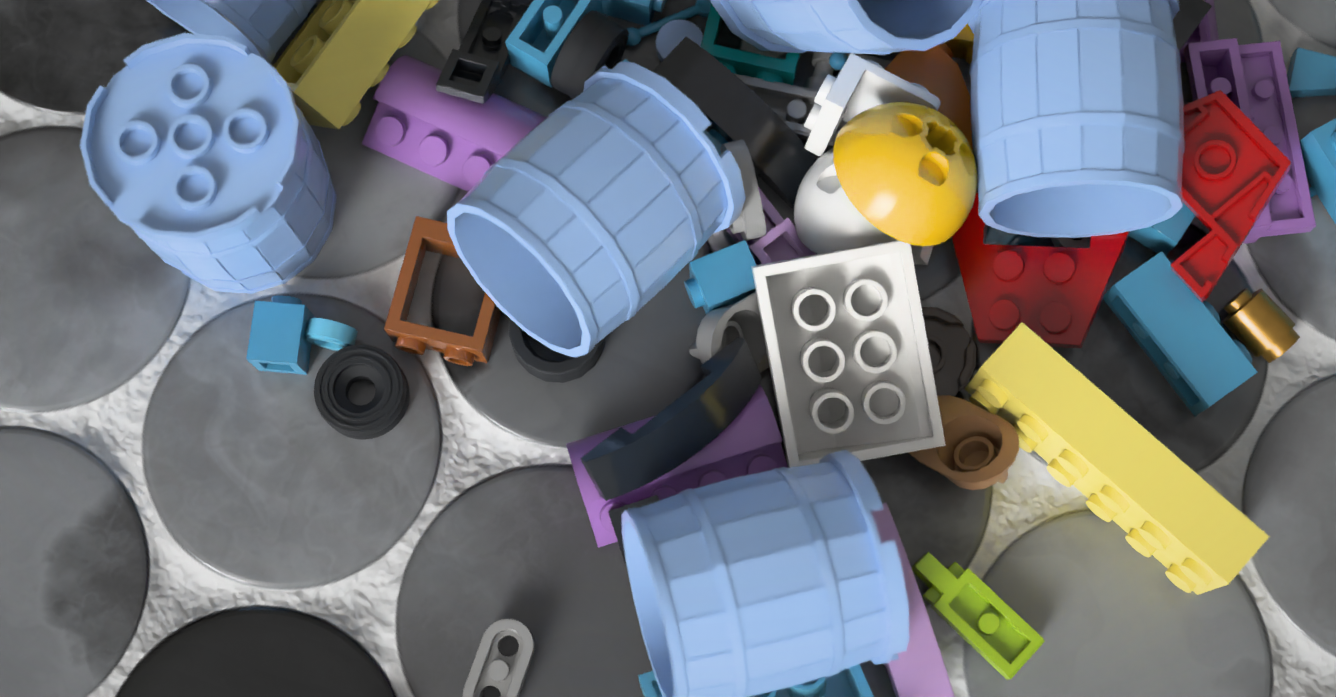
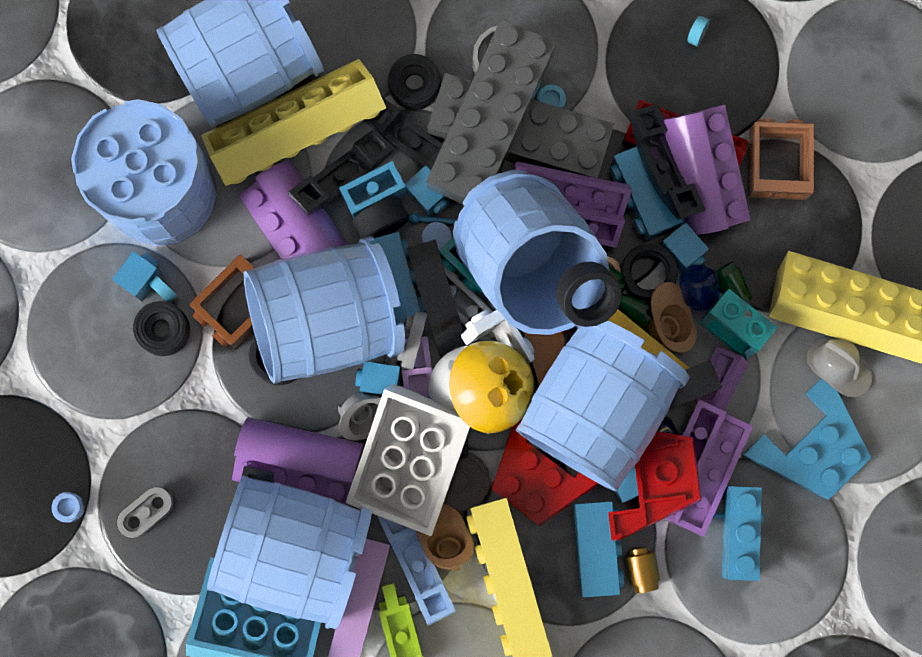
camera: 30 degrees right, 5 degrees up
(680, 430) = (303, 448): black slope -> none
(956, 514) = (419, 571): none -> light blue slope

